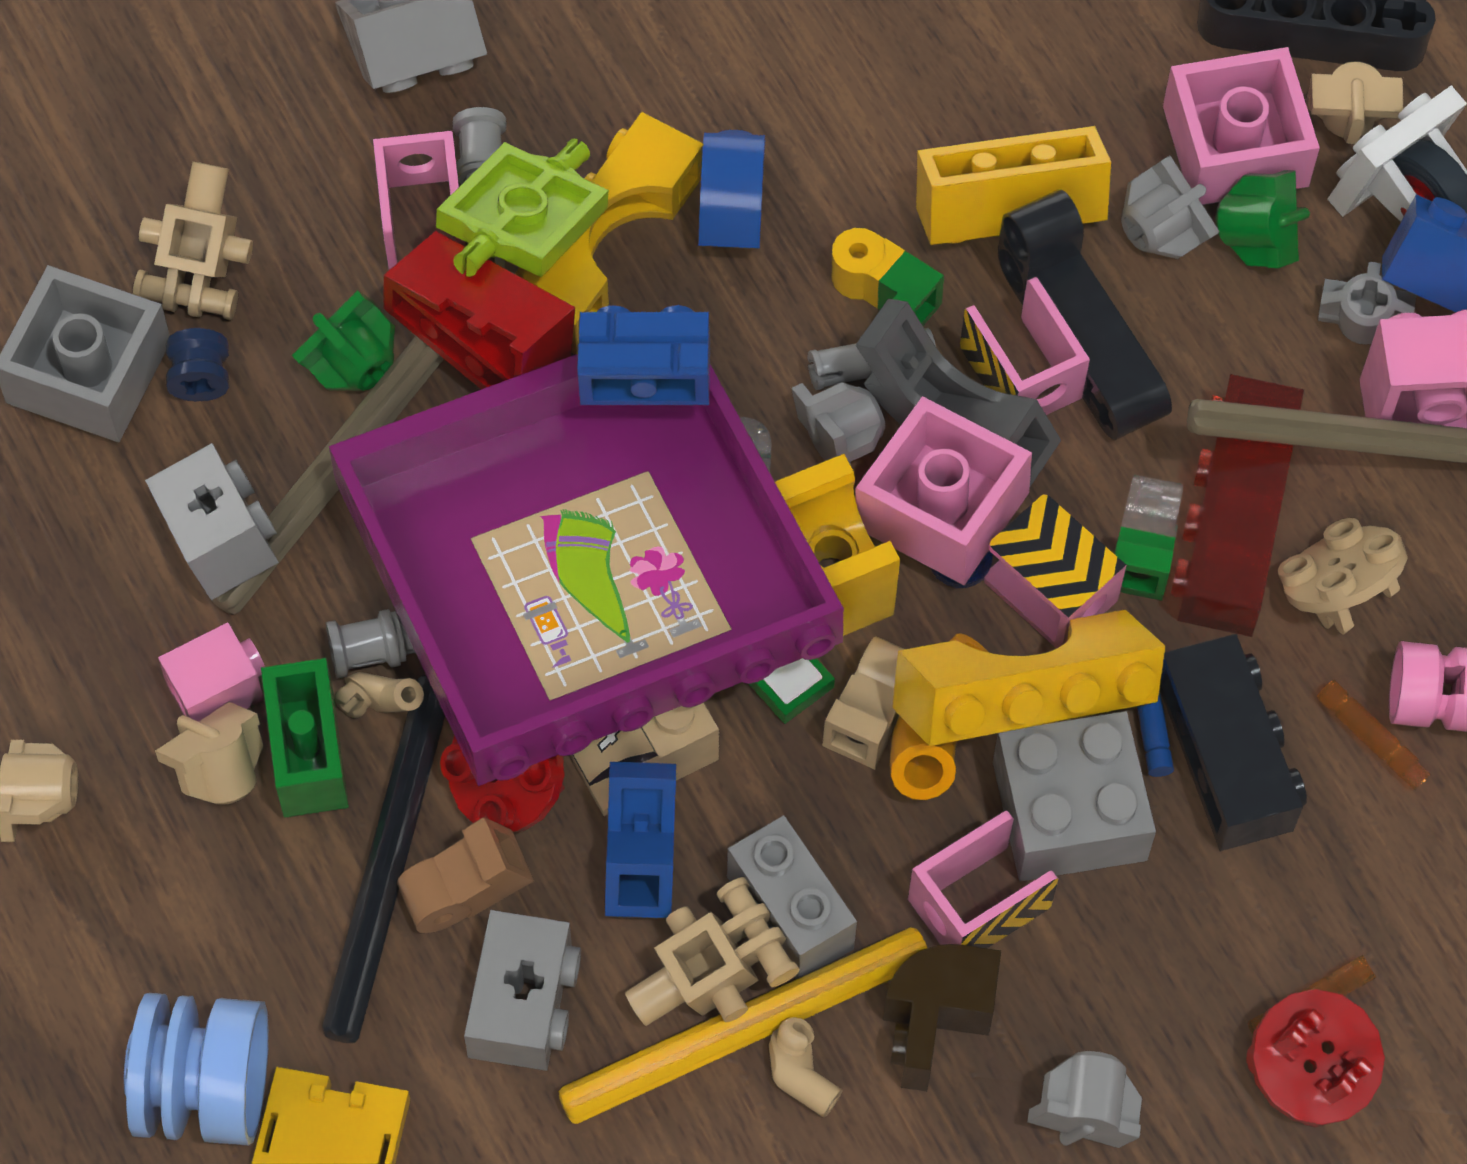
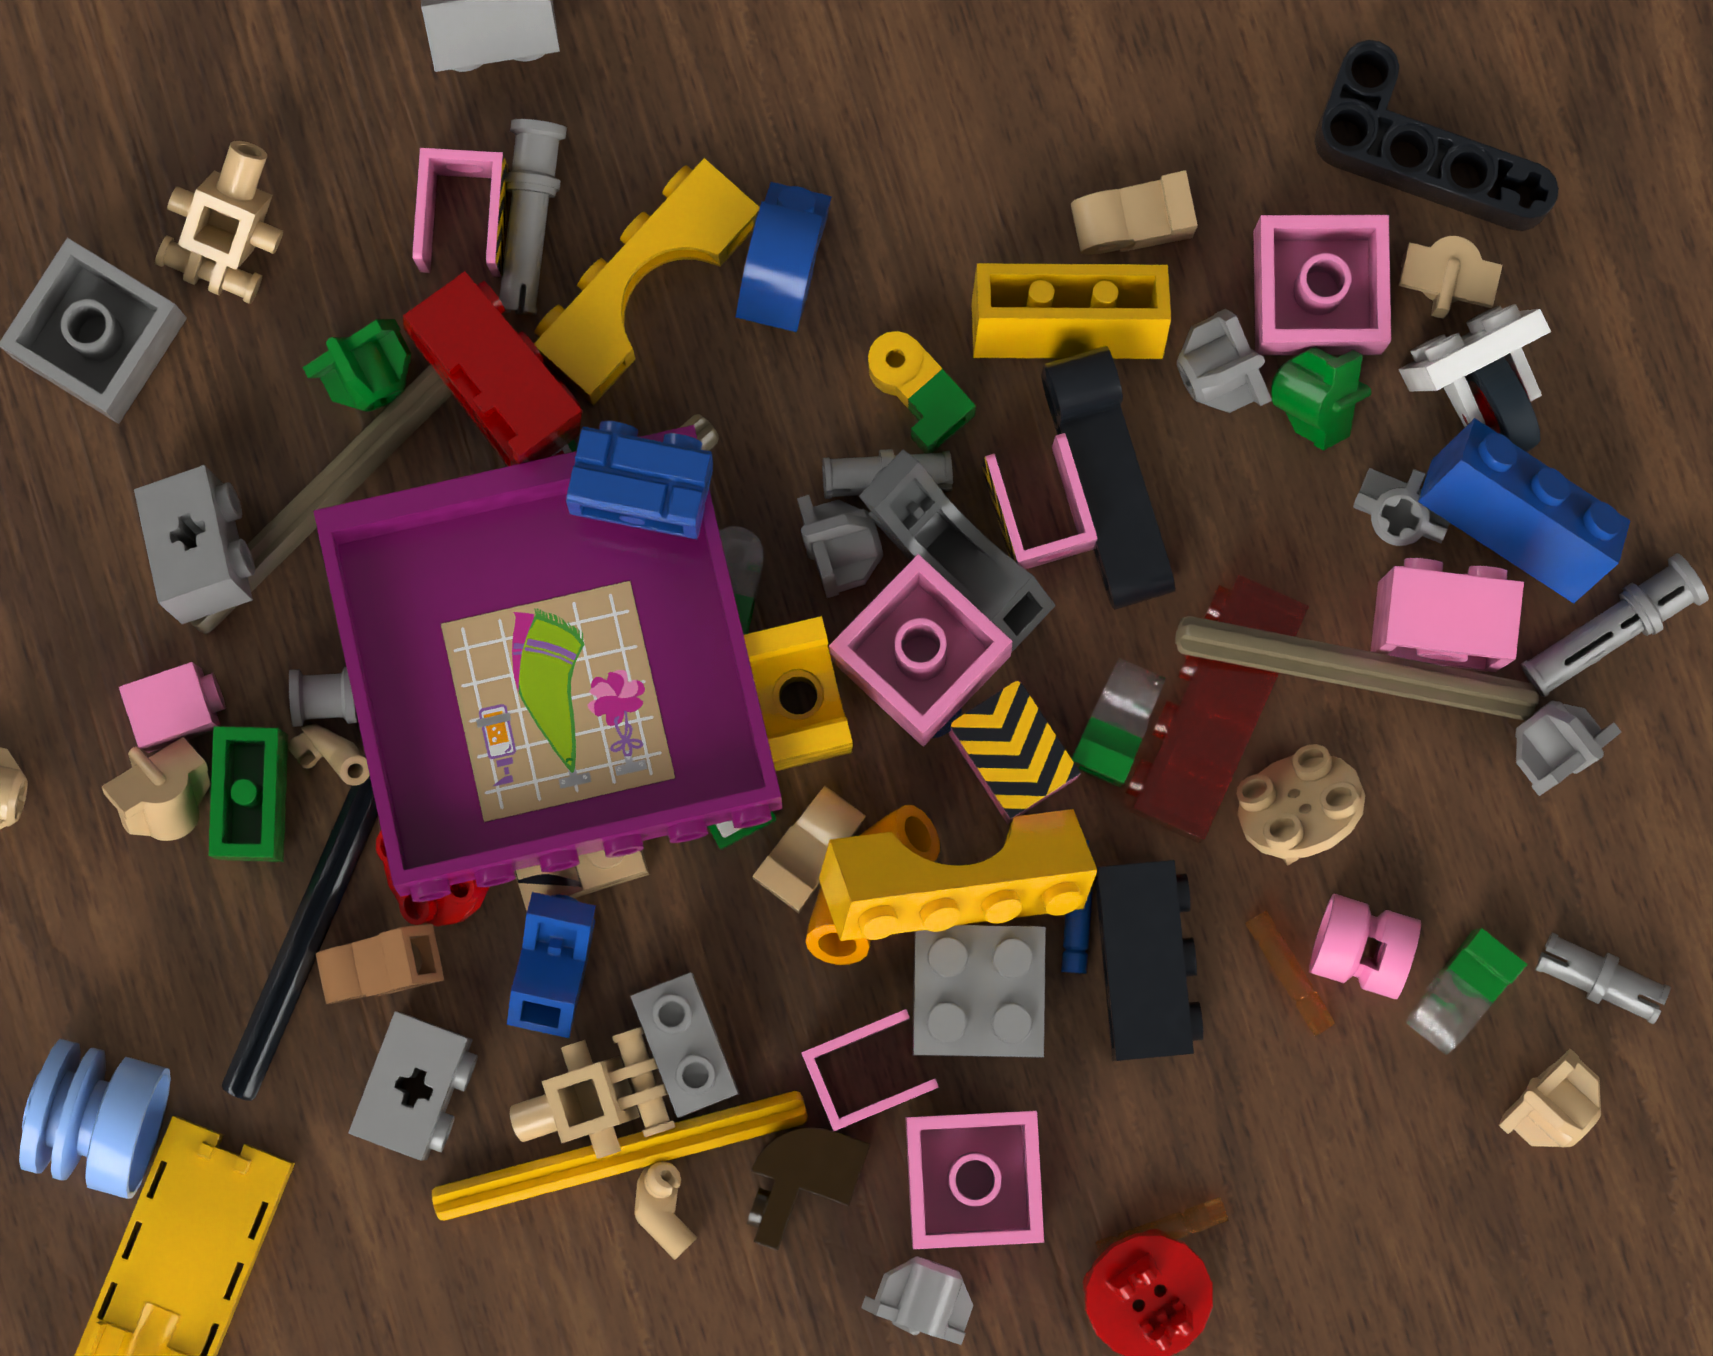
camera: 10 degrees right, 20 degrees up
(197, 364) = (207, 357): dark blue wheel -> none
(522, 208) = (556, 265): lime plate -> none
(1055, 102) = (1135, 216): none -> tan leg
(1113, 968) = (974, 1179): none -> bright pink brick

